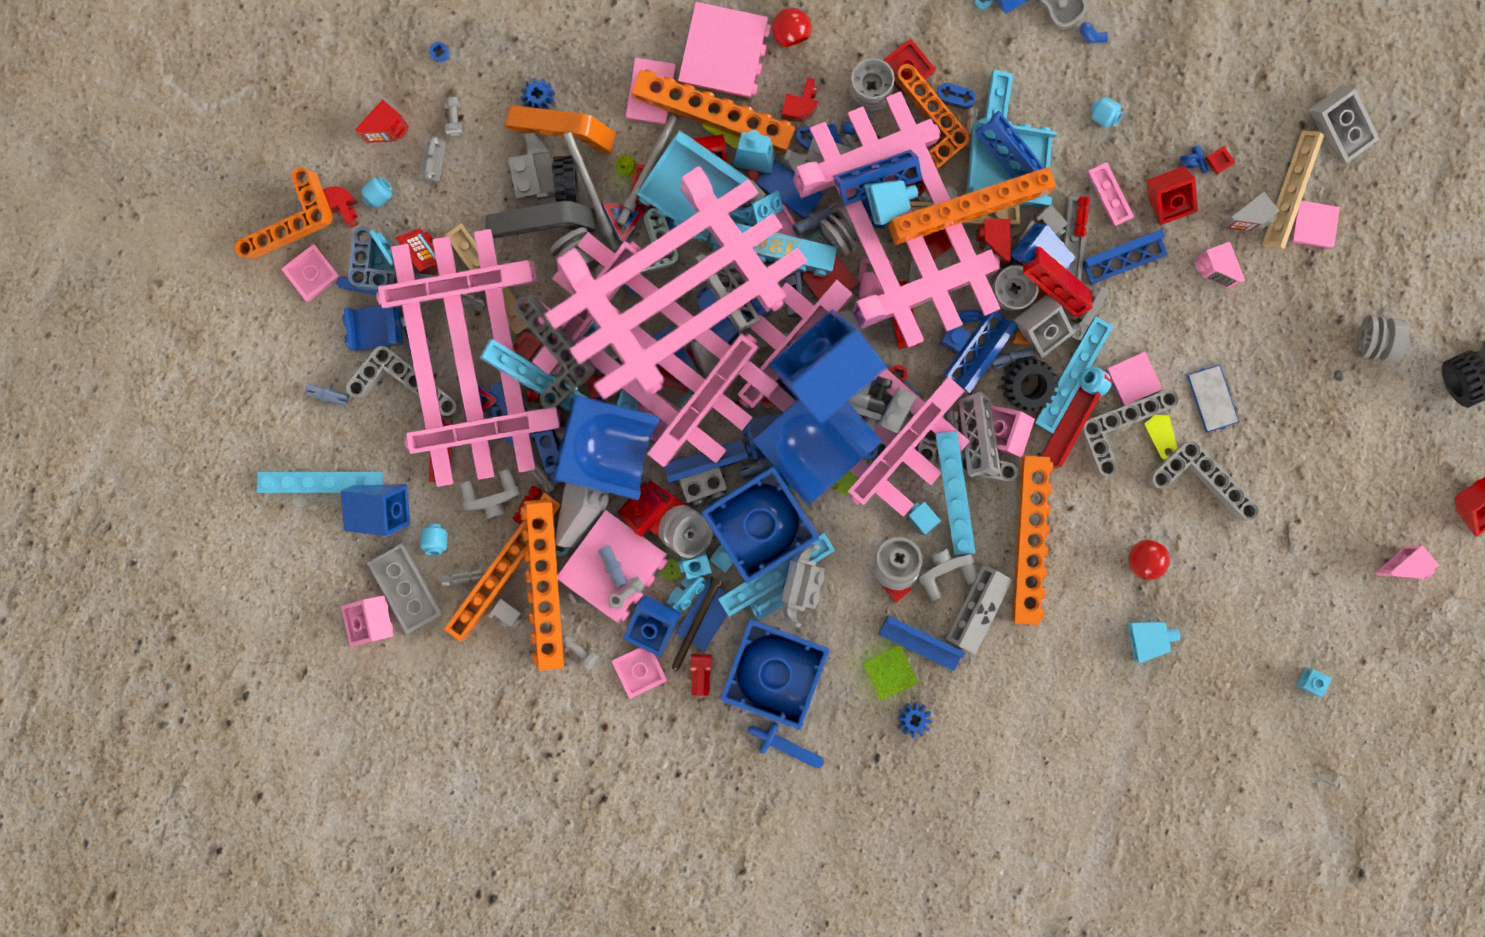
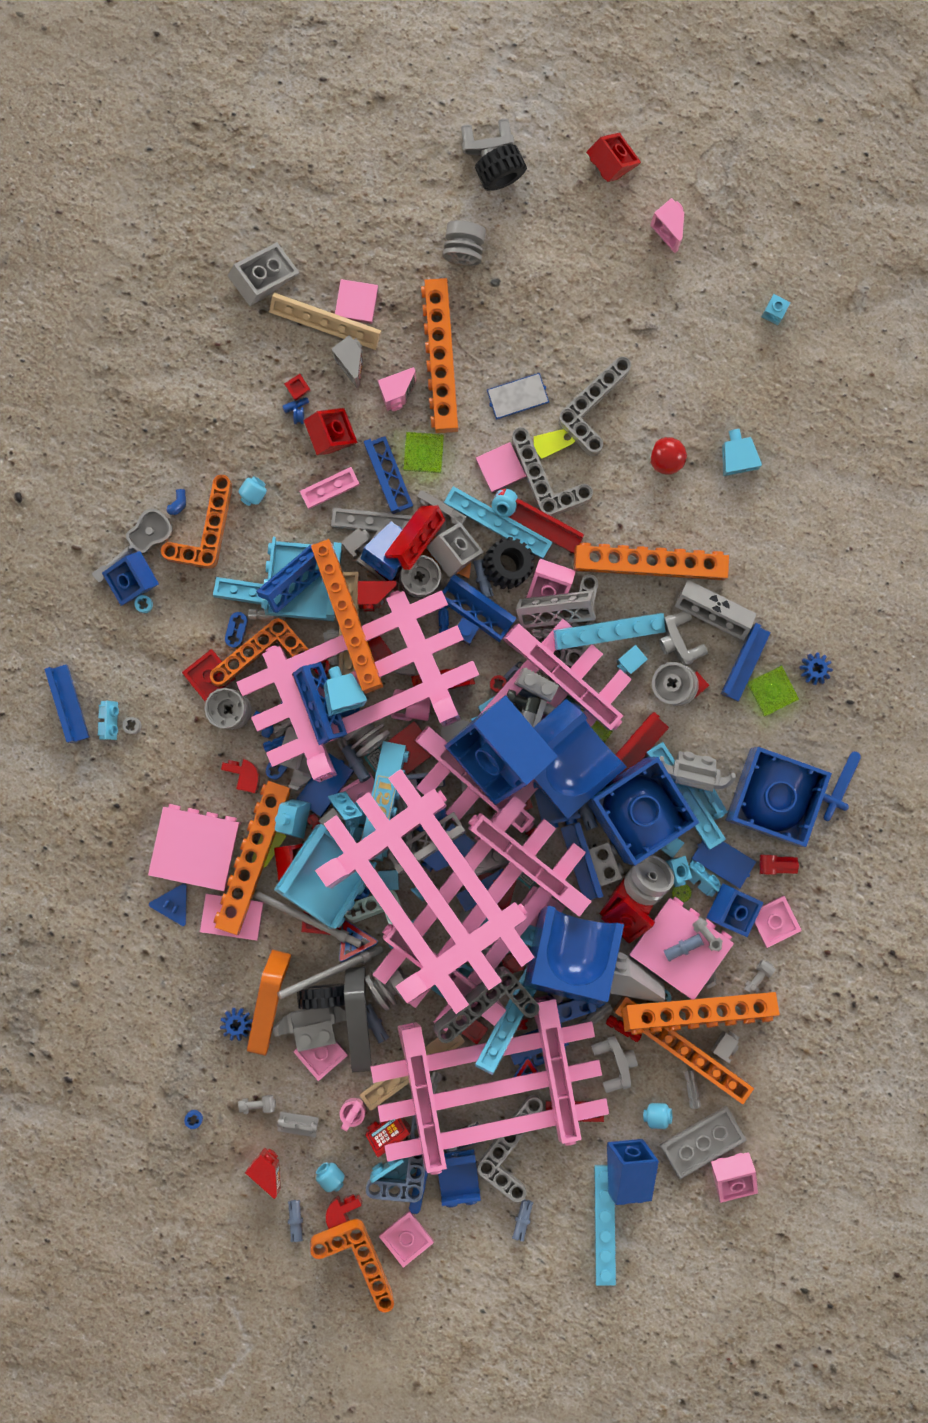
camera: 90 degrees left, 0 degrees up
(332, 156) = (295, 1221): none -> sand blue pin
(442, 215) = (352, 1113): none -> bright pink piece
(499, 185) = (322, 1059): none -> bright pink tile
(535, 240) = (375, 1025): none -> sand blue pin
(626, 165) = (303, 939): clear neon green tile -> none
(664, 30) = (172, 904): none -> blue piece
(686, 254) = (390, 878): none -> medium azure brick
(696, 622) = (694, 851): dark brown bar -> none
(791, 27) = (171, 784): red helmet -> none
(834, 526) = (642, 741): none -> red panel
(1063, 65) = (209, 530): none -> orange beam
(1081, 216) = (351, 514): red axle -> none
(1149, 296) = (423, 452): none -> clear neon green tile
(1331, 313) = (439, 289): none -> orange brick

